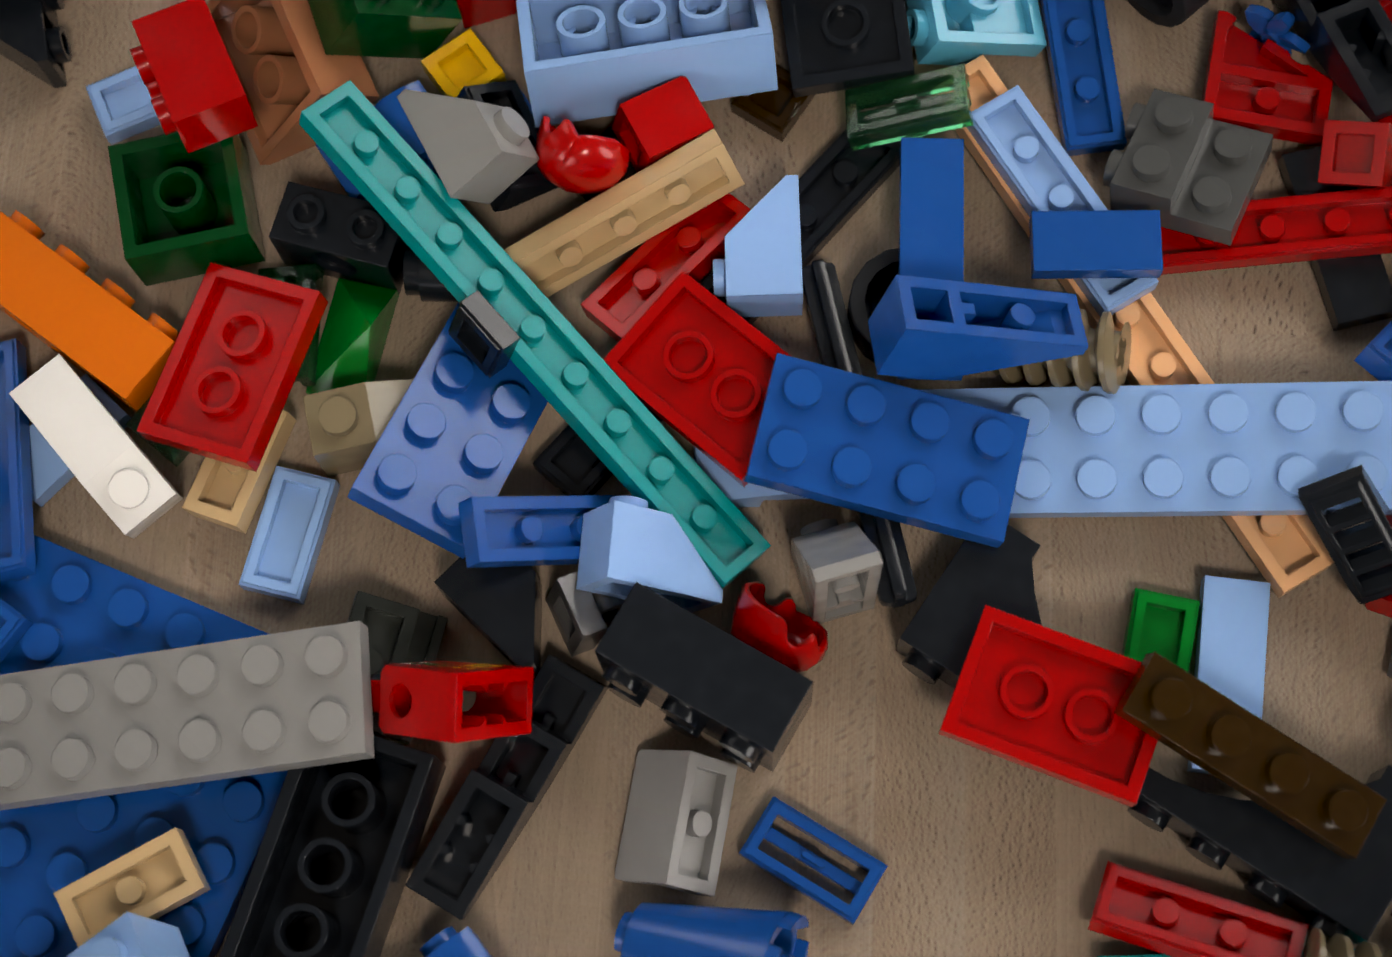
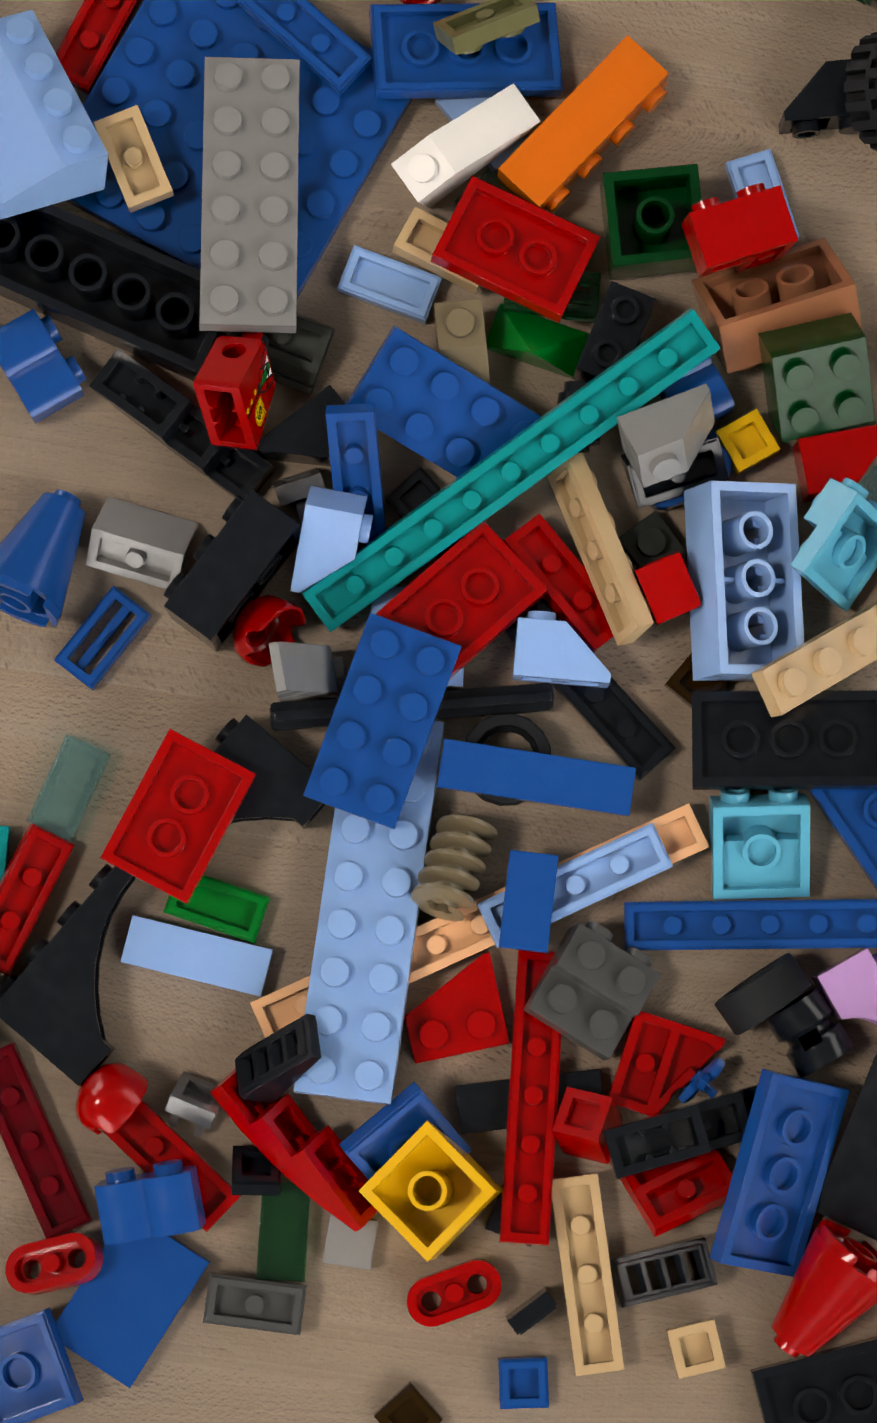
camera: 85 degrees right, 10 degrees up
(483, 334) = (506, 432): black tile -> none
(579, 161) = (647, 519): red hair -> none
(909, 114) = (664, 816): clear green tile -> none
(970, 328) = (461, 793): blue slope -> none
(1029, 880) = (69, 787): none -> clear light blue tile
(1245, 329) = (459, 1015): none -> red wing
(1250, 756) = (123, 943): dark brown plate -> none

